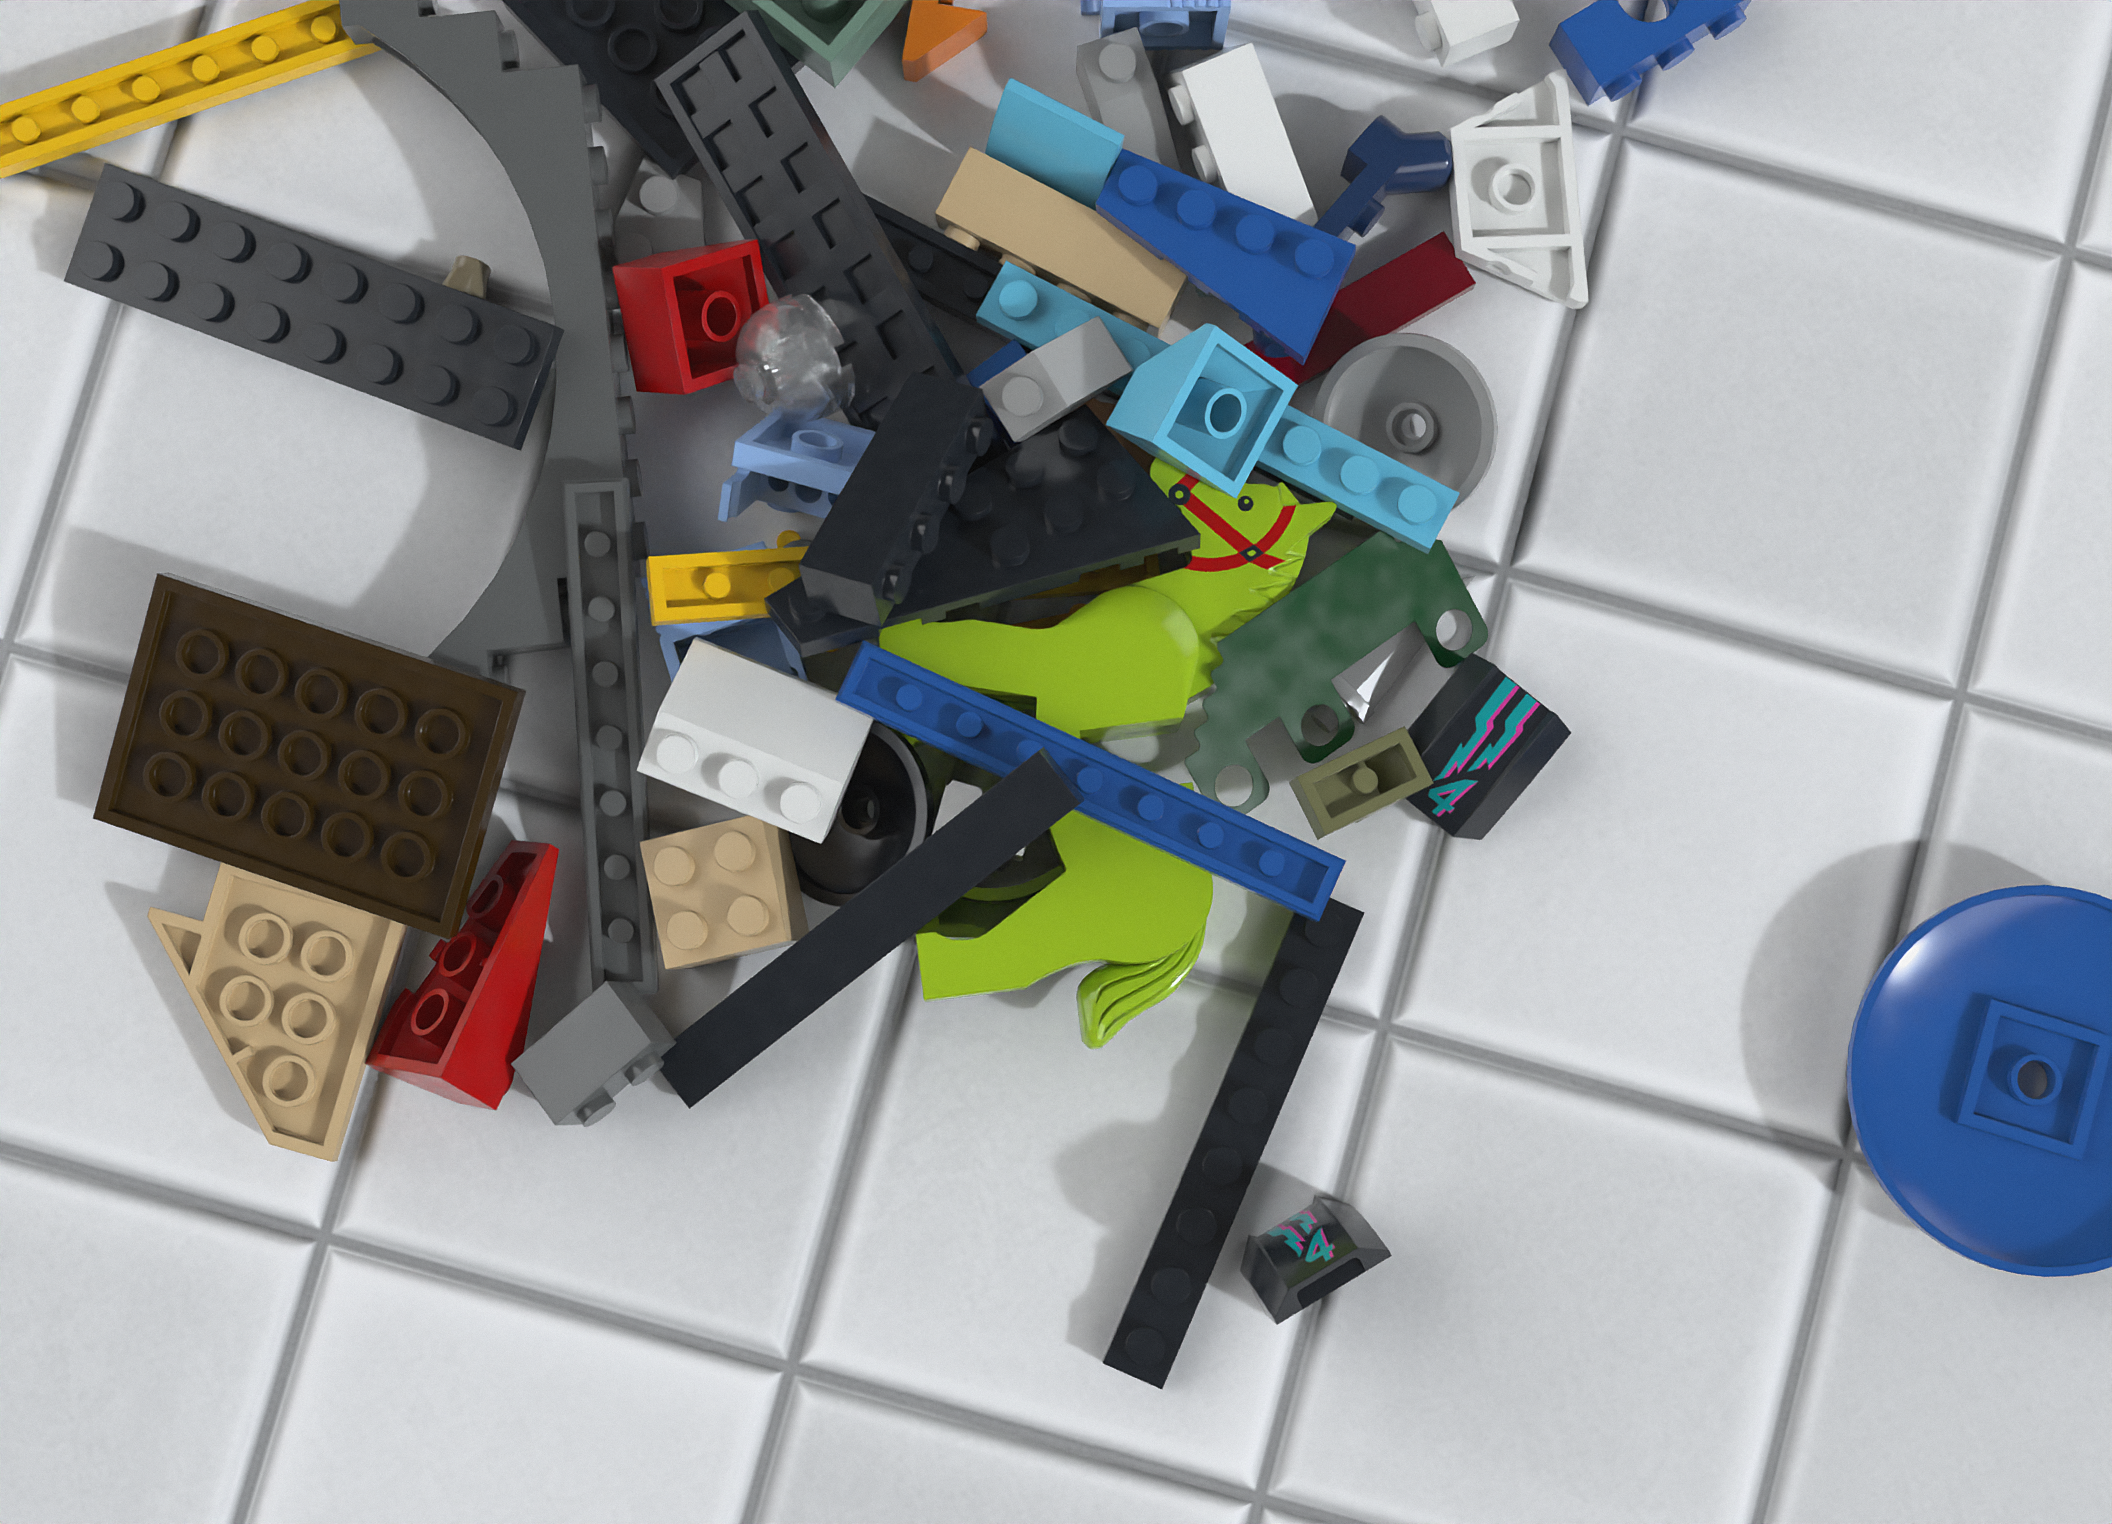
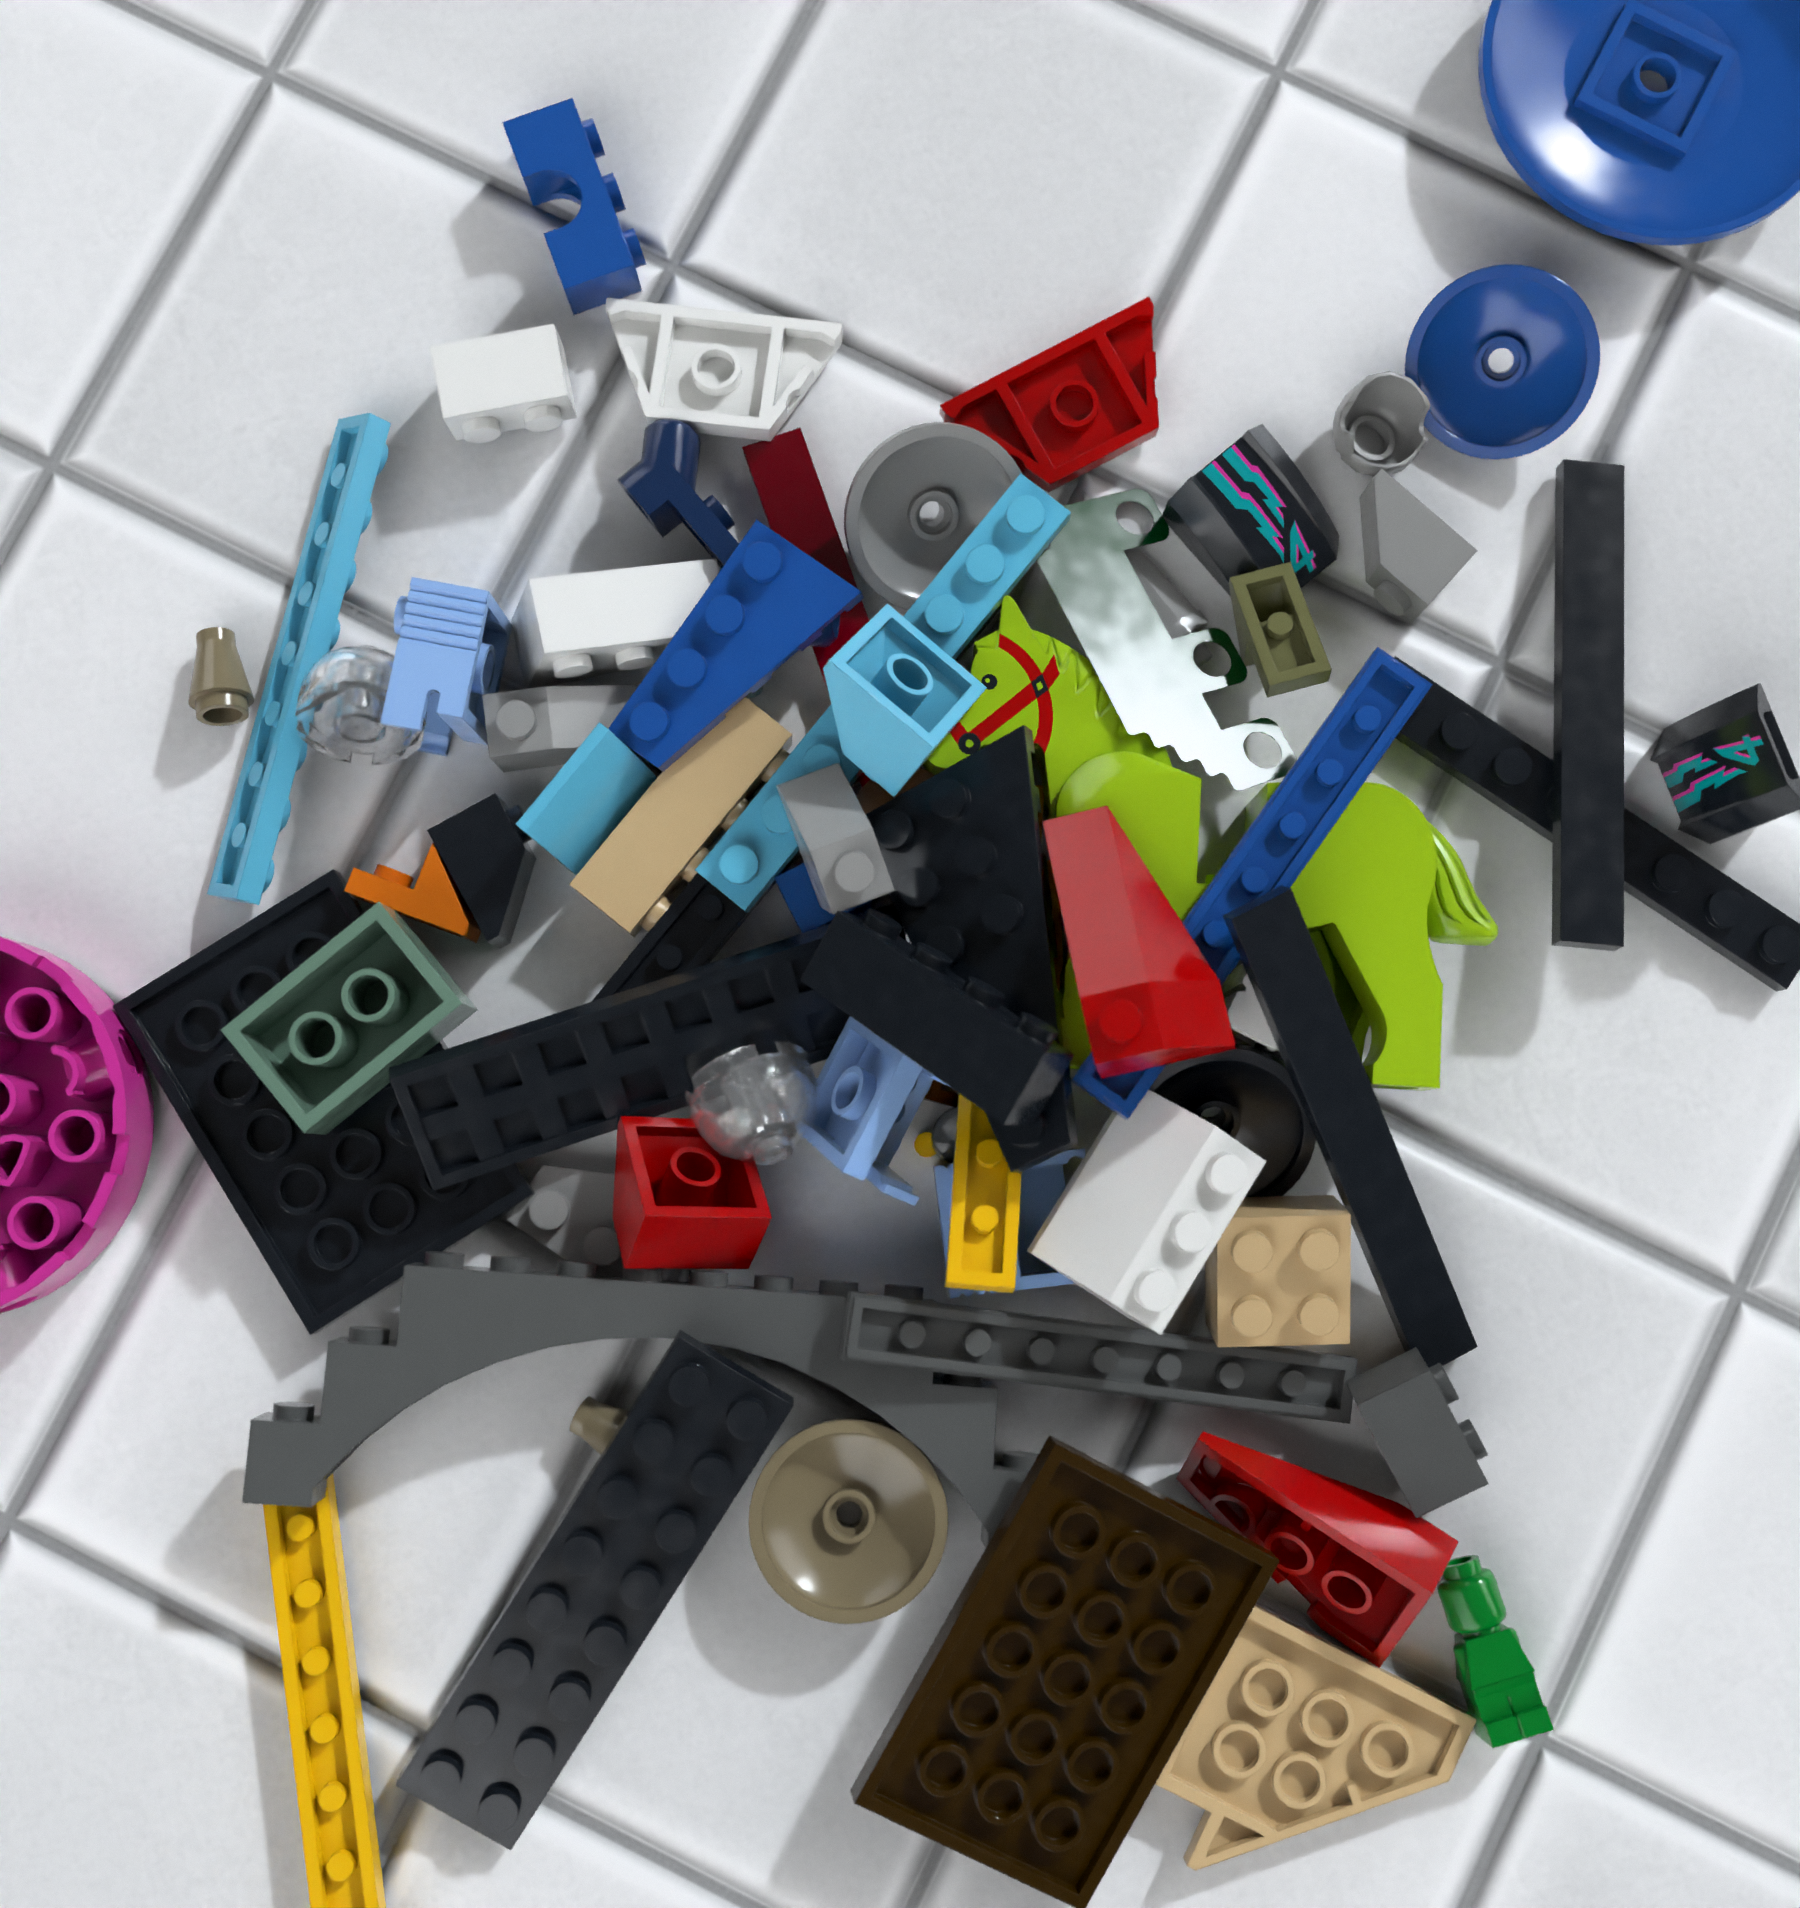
camera: 75 degrees left, 0 degrees up
(386, 497) = (837, 1567): none -> dark tan dish
(395, 1165) = (1489, 1657): none -> green piece
(974, 69) = (488, 863): none -> black slope
(987, 667) = (1133, 961): none -> red wedge
(1352, 1110) = (1588, 707): none -> black tile
(1473, 906) = (1407, 548): none -> light grey slope
(1558, 543) = (1071, 401): none -> red wing
(1597, 854) = (1381, 424): none -> light grey hair
(1656, 936) = (1551, 371): none -> blue dish

